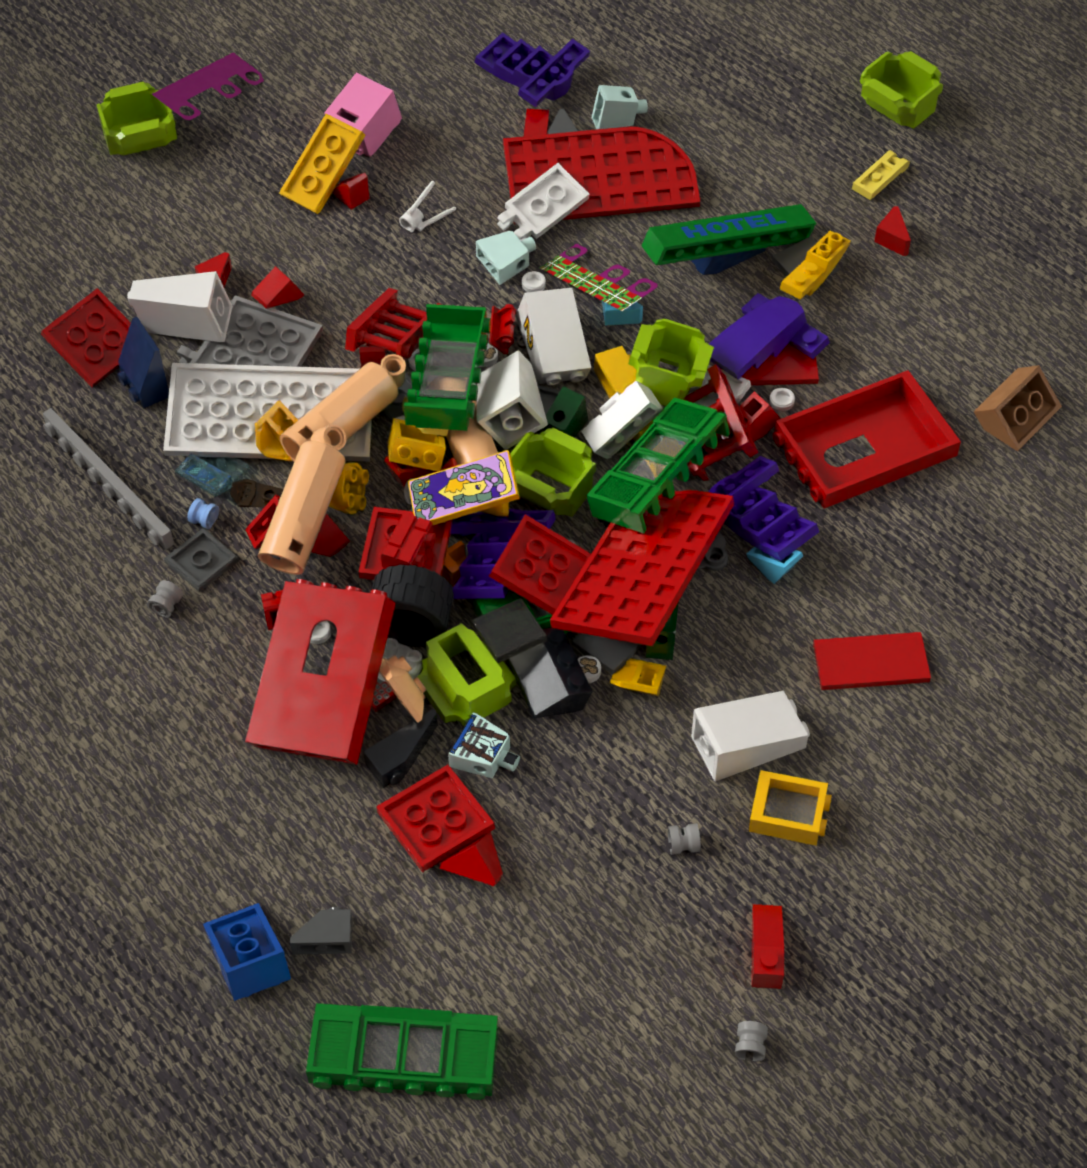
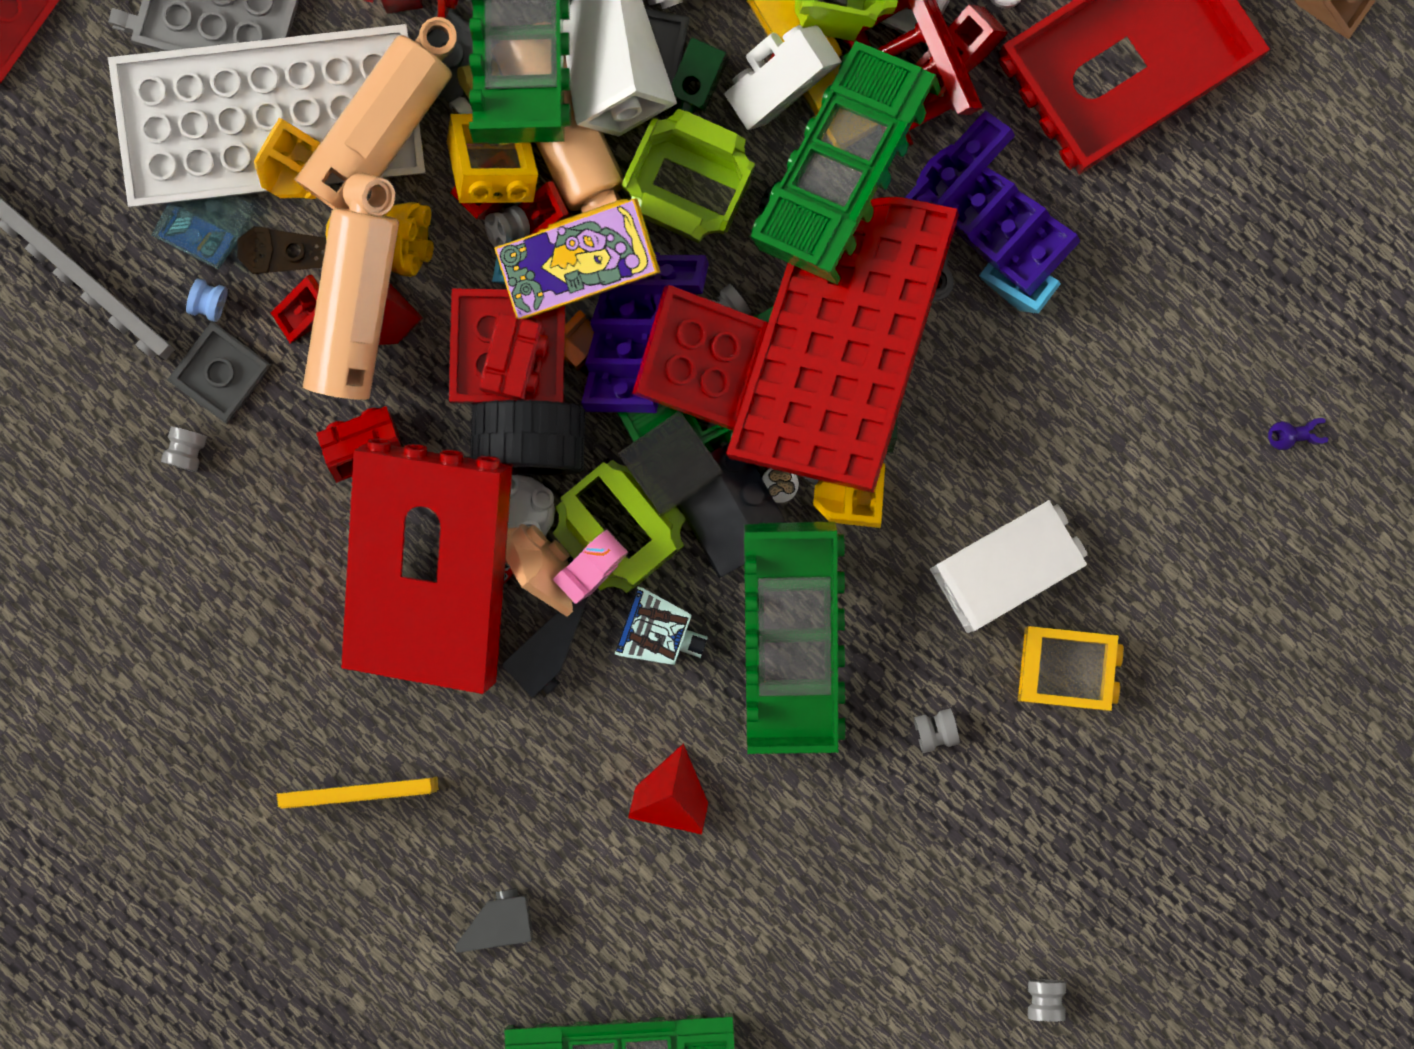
camera: 10 degrees left, 30 degrees up
(142, 367) = (64, 67): dark blue slope -> none
(239, 822) = (357, 792): none -> yellow tile
(247, 951) = (401, 959): blue slope -> none
(435, 818) = (610, 741): red plate -> none
(441, 682) = (591, 567): none -> bright pink leg
(582, 753) = (793, 637): none -> green window
(767, 947) = (1056, 865): red slope -> none
(871, 661) = (1161, 422): red tile -> none
(961, 678) = (1289, 435): none -> dark purple arm

